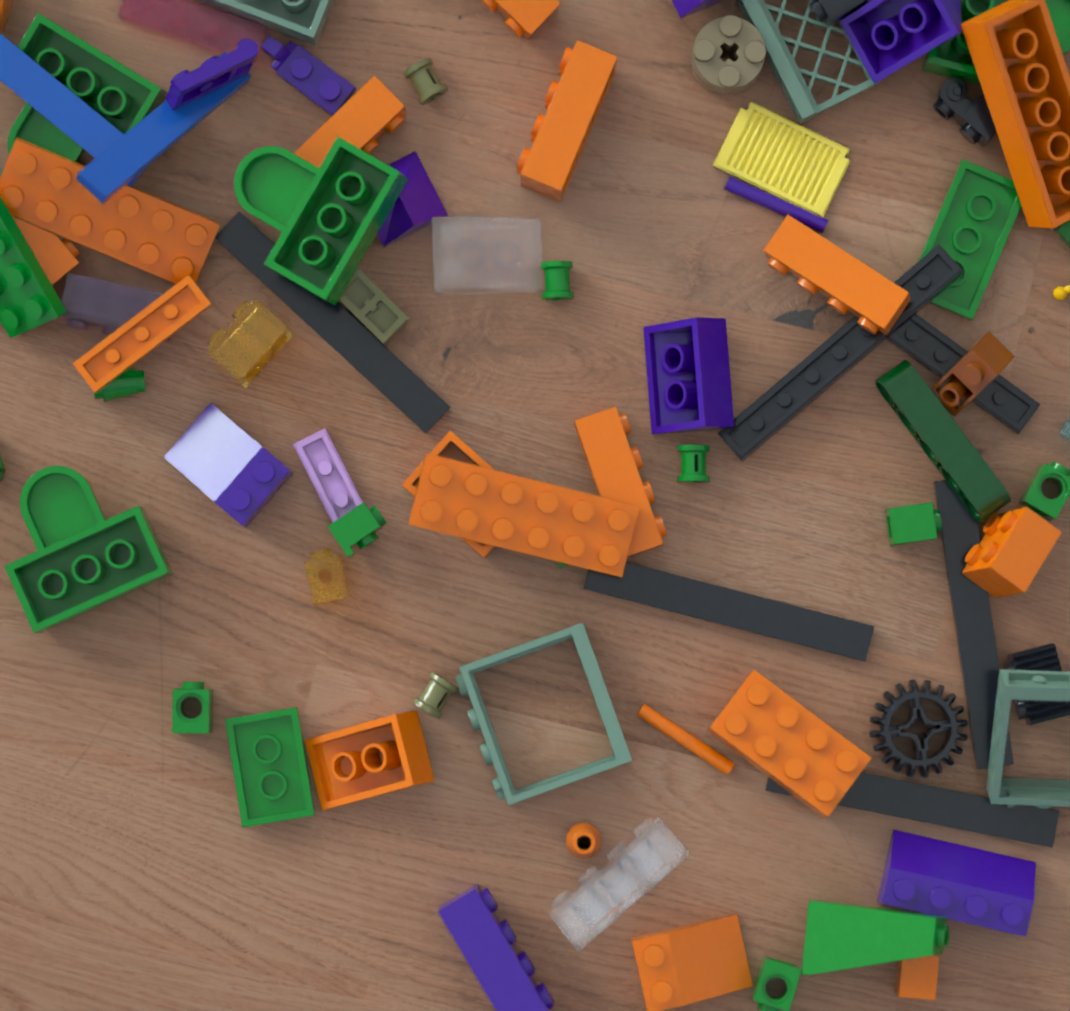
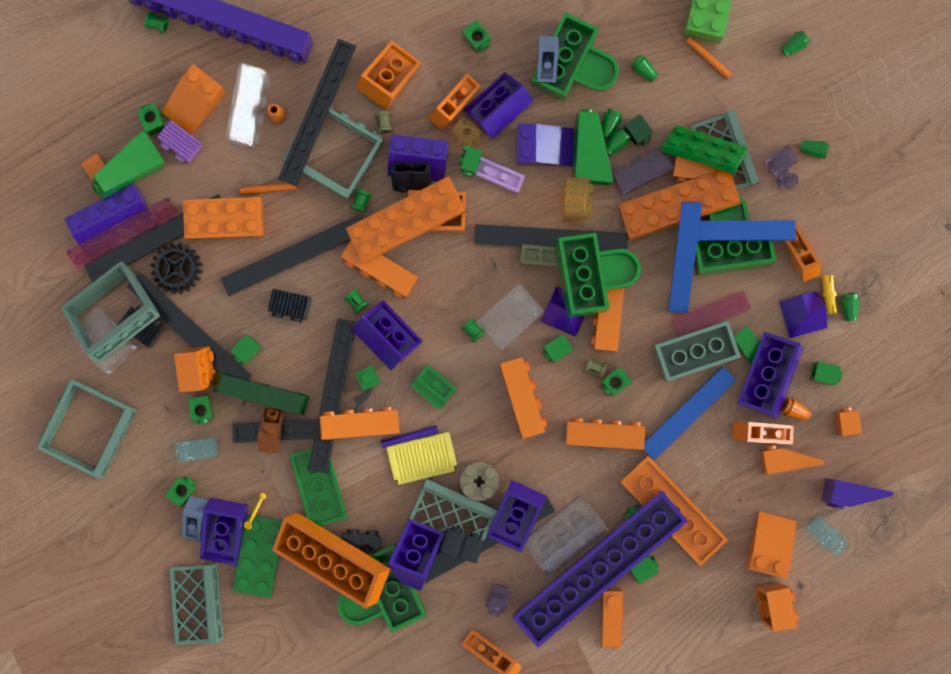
camera: 140 degrees right, 0 degrees up
(65, 378) = (638, 130): none -> dark green brick
(103, 419) = (610, 122): none -> green cone
(118, 579) = (547, 59): none -> sand blue slope
(142, 334) = (622, 166): orange plate -> none
(168, 402) = (590, 150): none -> green slope
(212, 74) = (683, 296): dark purple plate -> none
(245, 580) = (498, 105): none -> dark purple slope
(270, 767) = (426, 39): green plate -> none
(306, 638) = (454, 101): none -> orange slope
(308, 75) = (645, 331): dark purple hinge -> none
(401, 26) = (623, 379): none -> green brick
(429, 599) = (418, 149): none -> dark purple slope
(458, 152) = (557, 349): none -> green brick
(462, 577) = (410, 176): none -> black brick
(522, 786) = (317, 112): none -> black tile
(565, 605) = (360, 201): none -> green bush
(682, 245) = (433, 387): none -> green plate
(761, 914) = (179, 141): none -> medium lavender brick
(767, 335) = (368, 378): none -> green brick
(796, 537) = (289, 304): none -> black brick
(955, 847) = (122, 233): none -> clear pink plate

